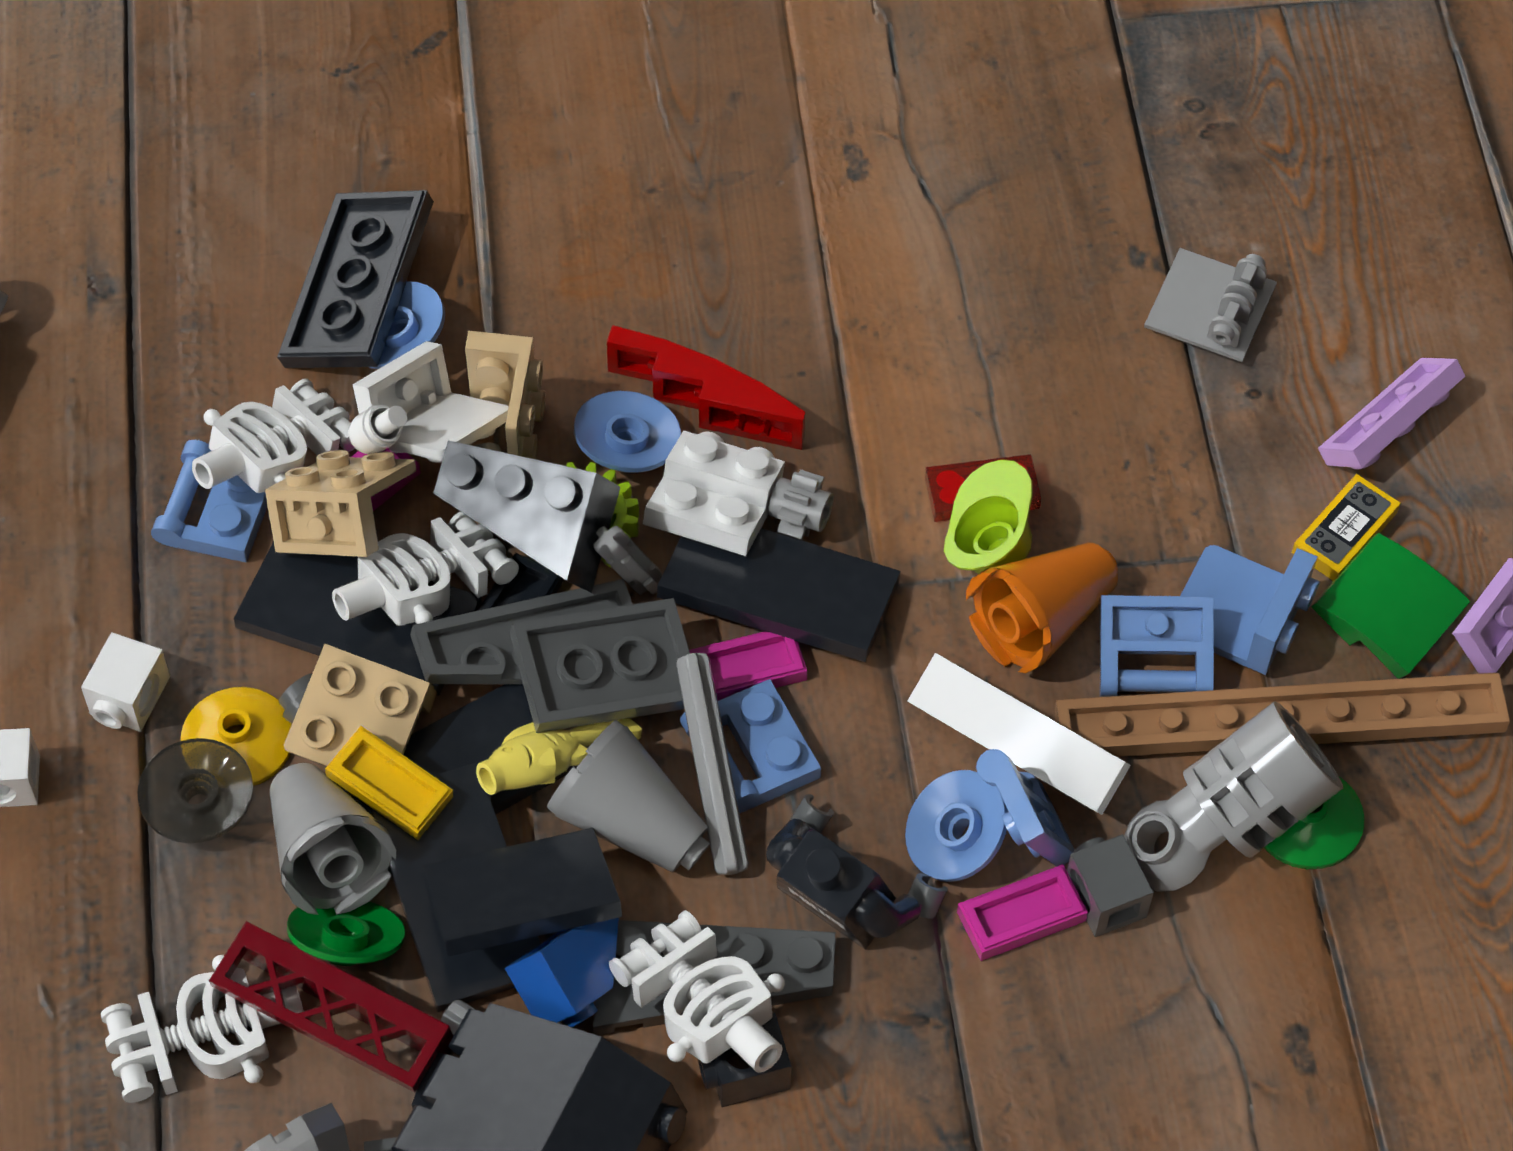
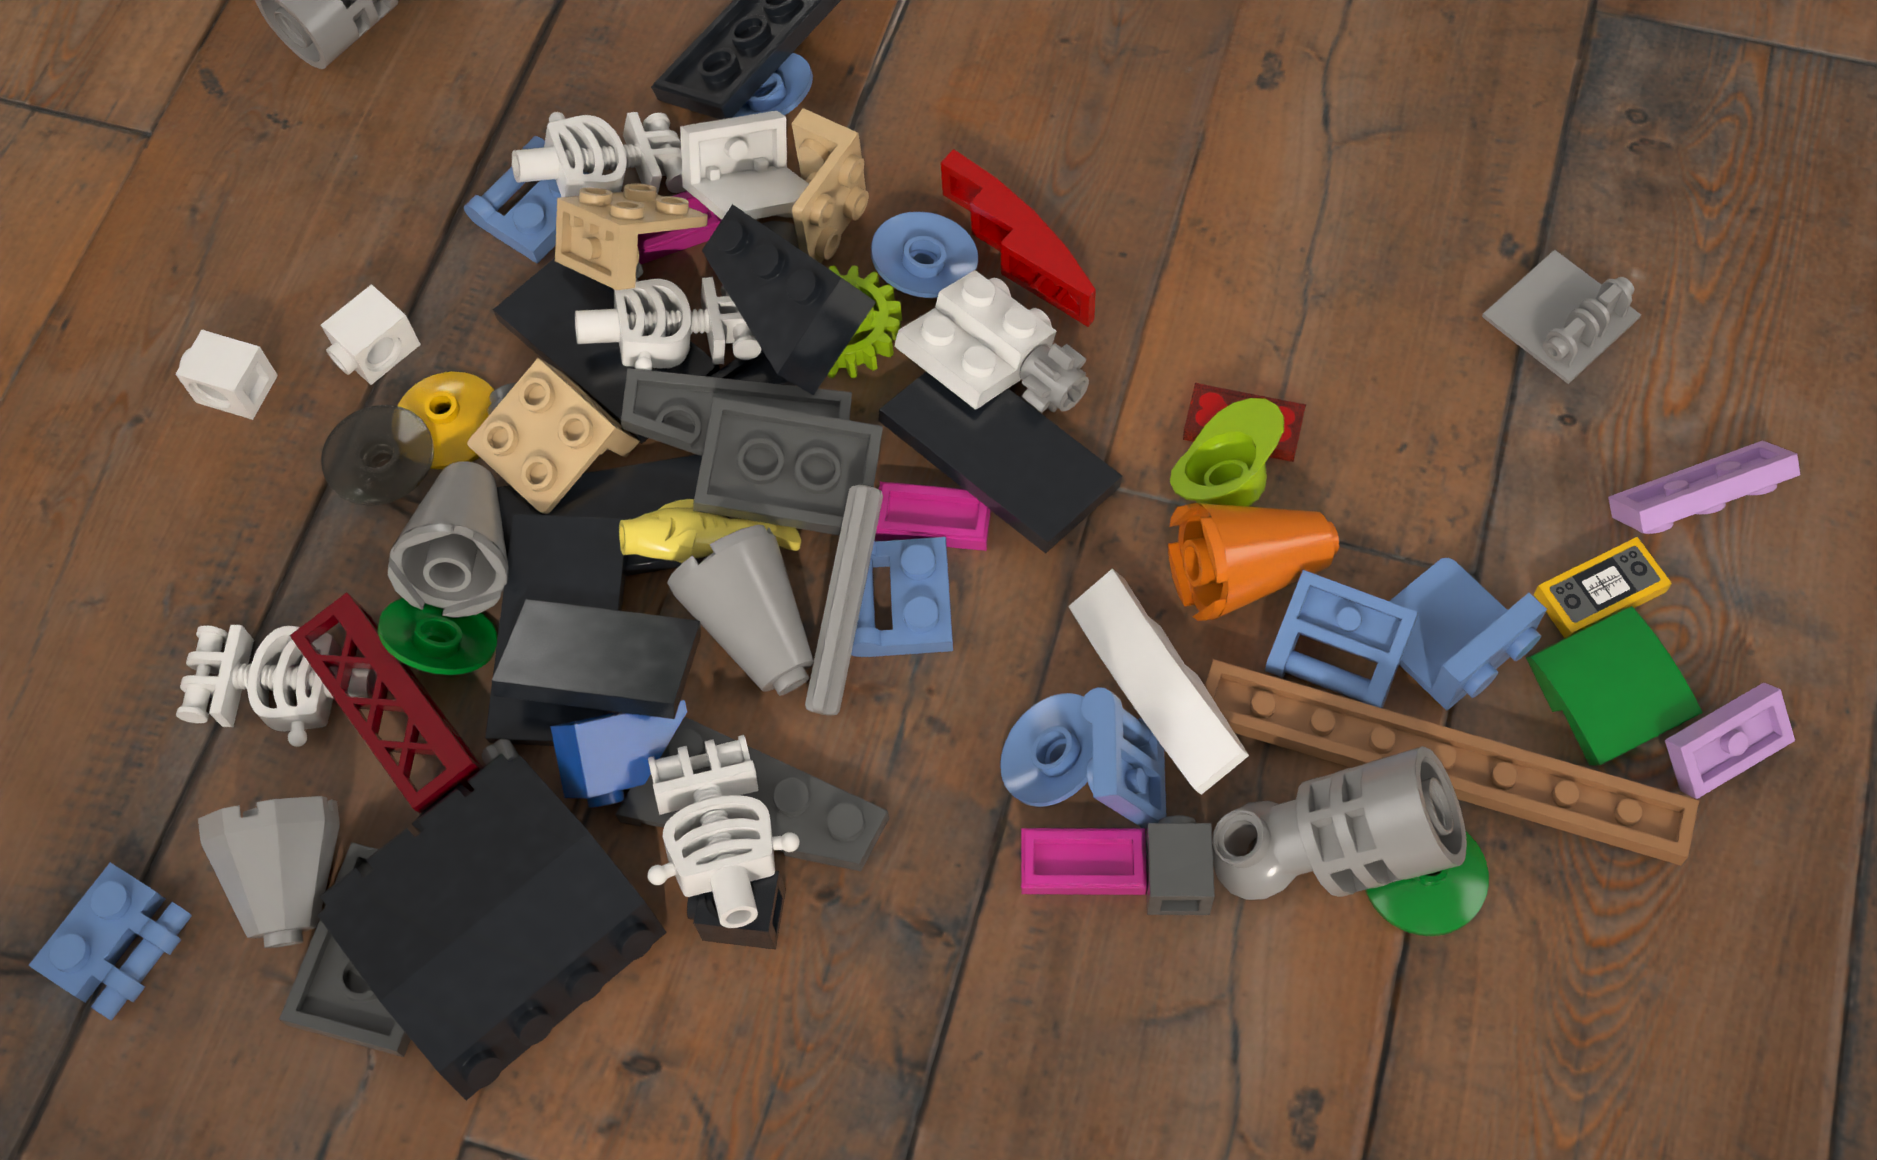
camera: 30 degrees right, 5 degrees up
(377, 428) = (682, 174): white cylinder -> none
(389, 782) = (535, 509): yellow tile -> none
(627, 560) = (857, 373): light grey axle -> none
(840, 885) = (904, 768): black torso -> none

